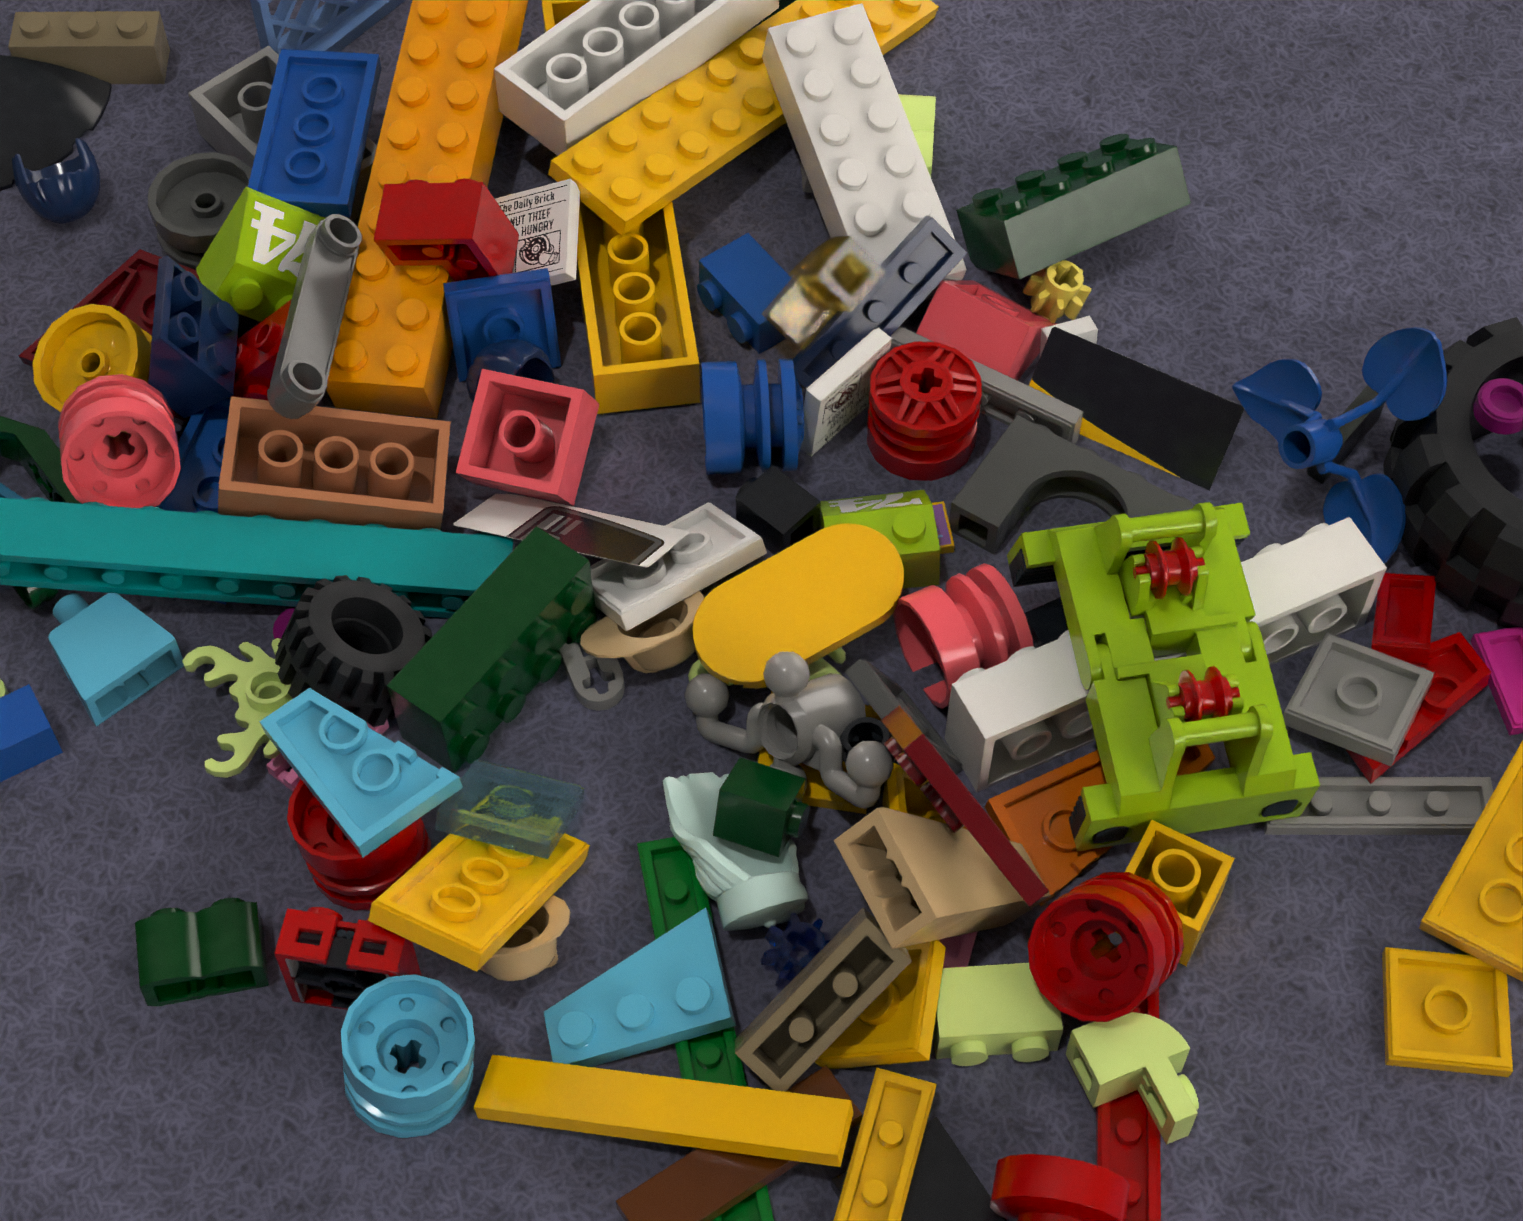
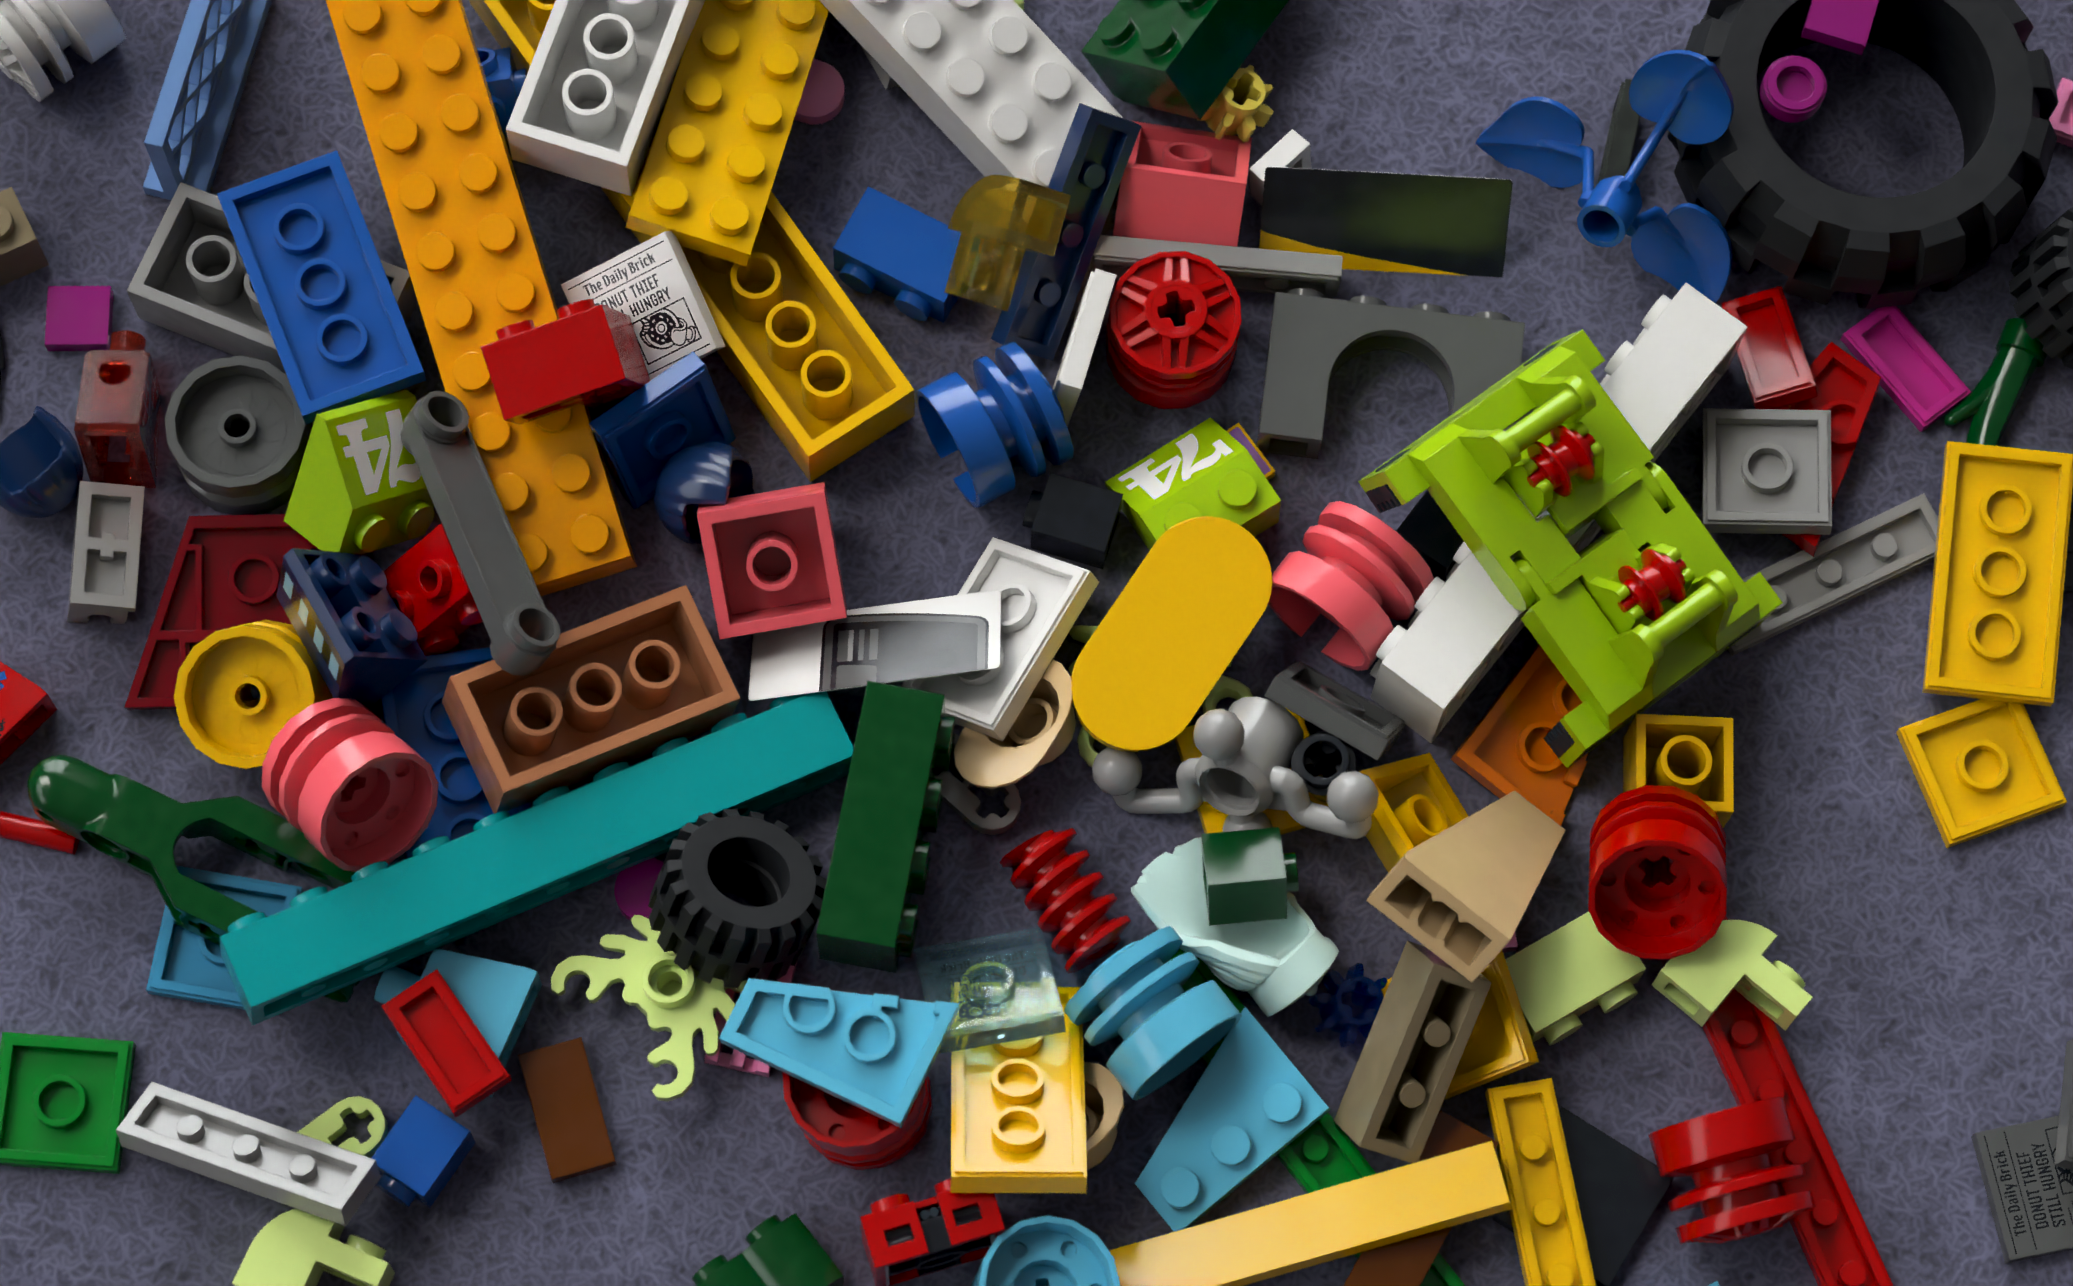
camera: 30 degrees left, 15 degrees up
(68, 250) = (105, 551): none -> light grey hinge
(73, 655) = (446, 1043): none -> red tile
(126, 166) = (119, 399): none -> clear red torso
(142, 758) = (567, 1110): none -> reddish brown tile
(159, 118) = (78, 318): none -> magenta tile
(613, 770) = (1065, 897): none -> red piece
(622, 871) = (1145, 1004): none -> medium azure wheel
(748, 175) = (822, 94): none -> bright pink tile
(956, 802) = (1466, 801): dark red wing -> none

